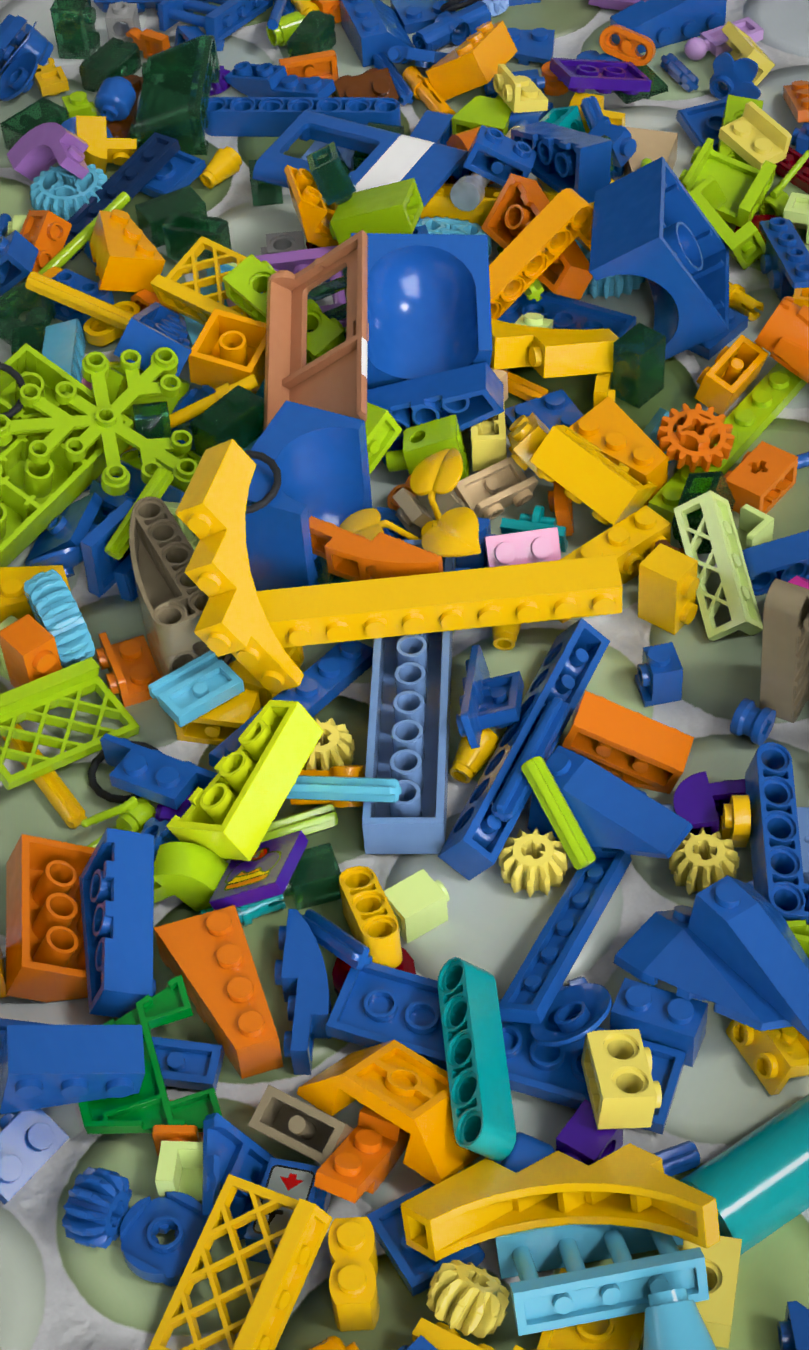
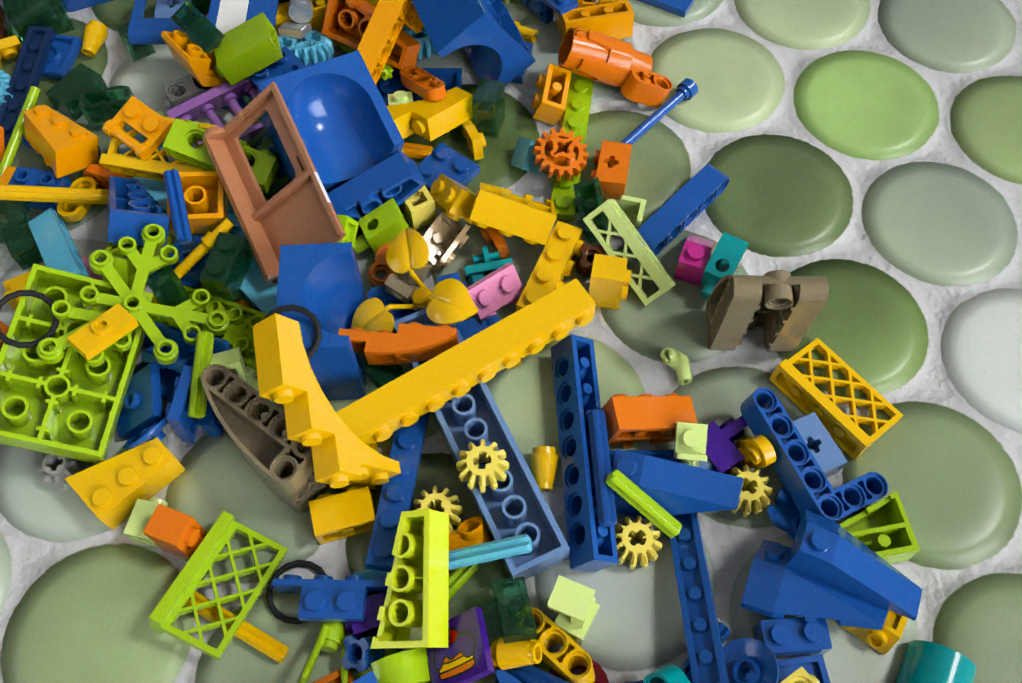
camera: 30 degrees left, 15 degrees up
(59, 615) = (180, 489): medium azure gear -> none
(60, 429) = (102, 331): none -> yellow plate
(129, 668) = (254, 499): orange bracket -> none
(196, 688) = (323, 511): medium azure plate -> none
(205, 344) = (177, 207): none -> blue axle
(218, 252) = (144, 121): none -> light orange plate
(318, 896) = (515, 654): none -> yellow cone
(343, 854) = (514, 610): none -> clear green plate
(391, 703) = (470, 465): none -> light yellow gear
(415, 866) = (571, 600): none -> yellowish green panel
(451, 215) = (294, 30): none -> flat silver piece
(487, 700) = (541, 421): blue bracket -> none
(570, 313) = (423, 83): none -> orange beam
(624, 442) = (509, 172): light orange wedge -> none
(659, 675) = (634, 350): blue brick -> none
(659, 775) = (690, 443): none -> yellowish green bracket
(710, 709) = (678, 362): none -> yellowish green arm
(752, 721) = (713, 362): blue wheel -> none

